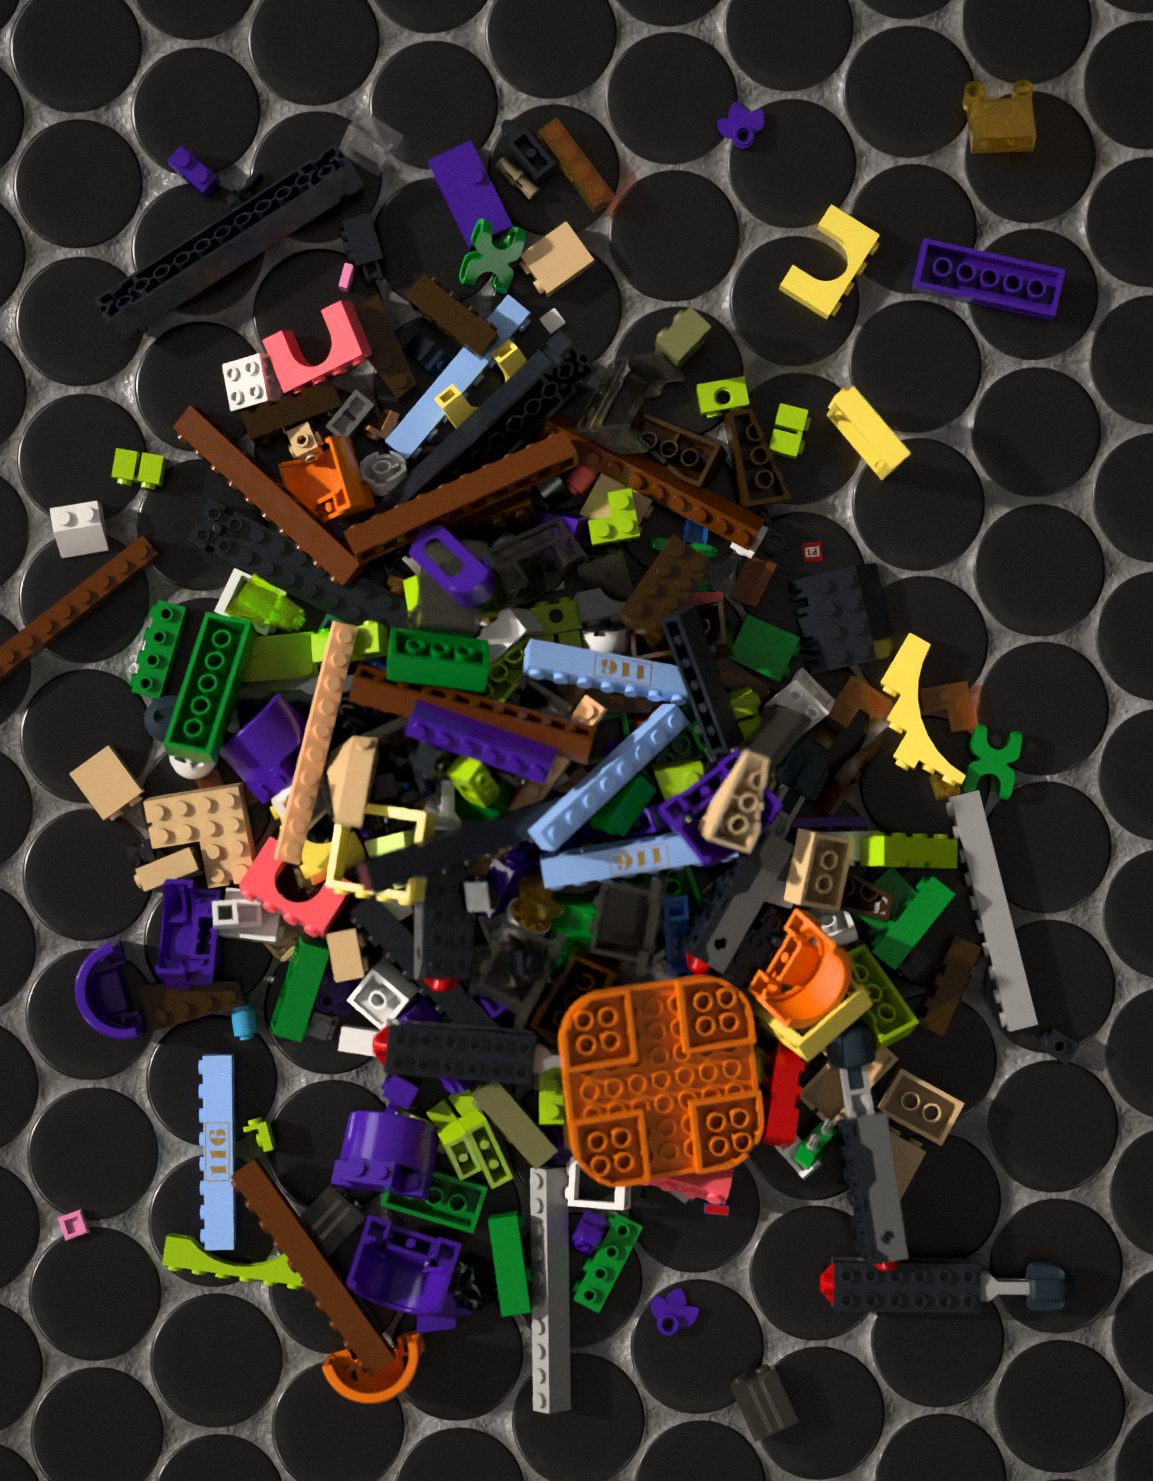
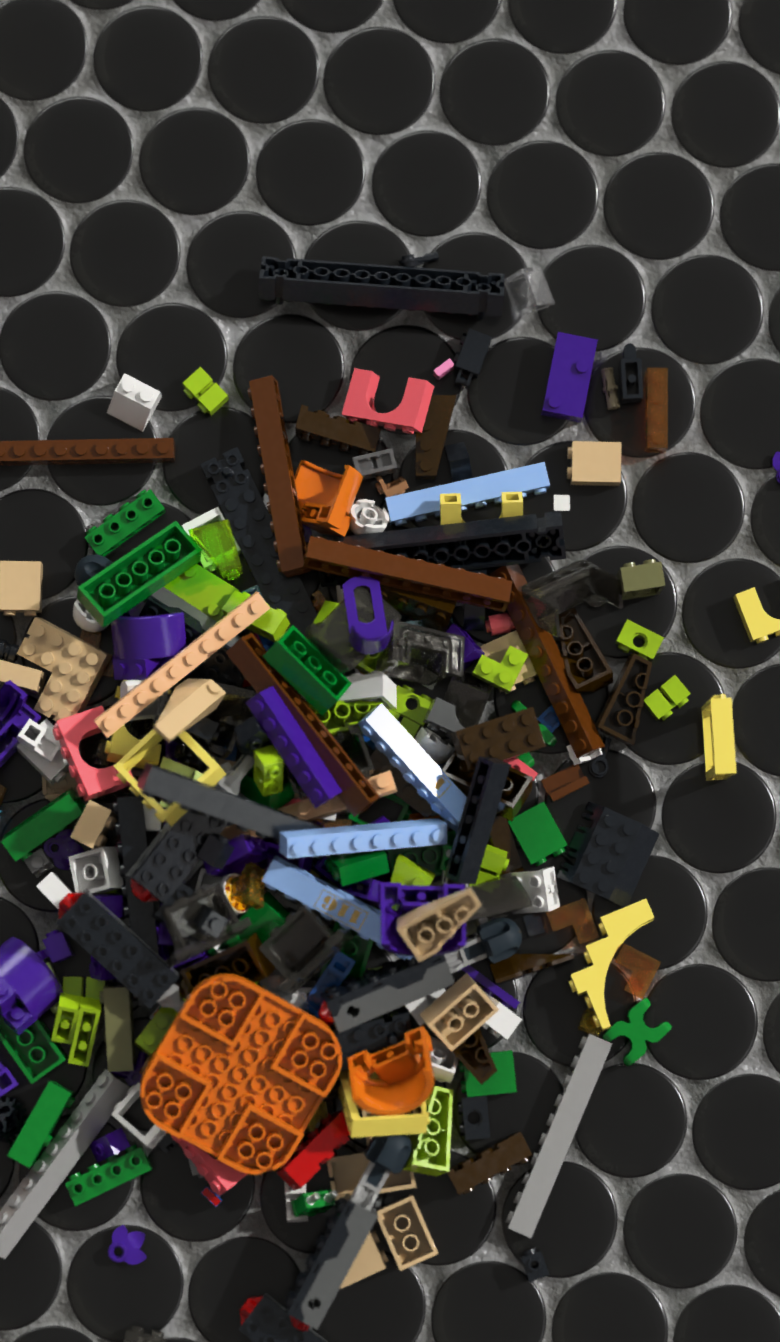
camera: 35 degrees right, 5 degrees down
(193, 171) = (394, 221): dark purple brick -> none
(251, 382) = (325, 390): white bracket -> none
(305, 443) = (330, 458): tan brick -> none
(452, 316) = (494, 448): dark brown wedge -> none
(492, 256) = (552, 428): green piece -> none
(812, 551) = (621, 793): red sticker -> none
(908, 851) = (531, 1048): lime wedge -> none
(912, 922) = (496, 1099): green brick -> none

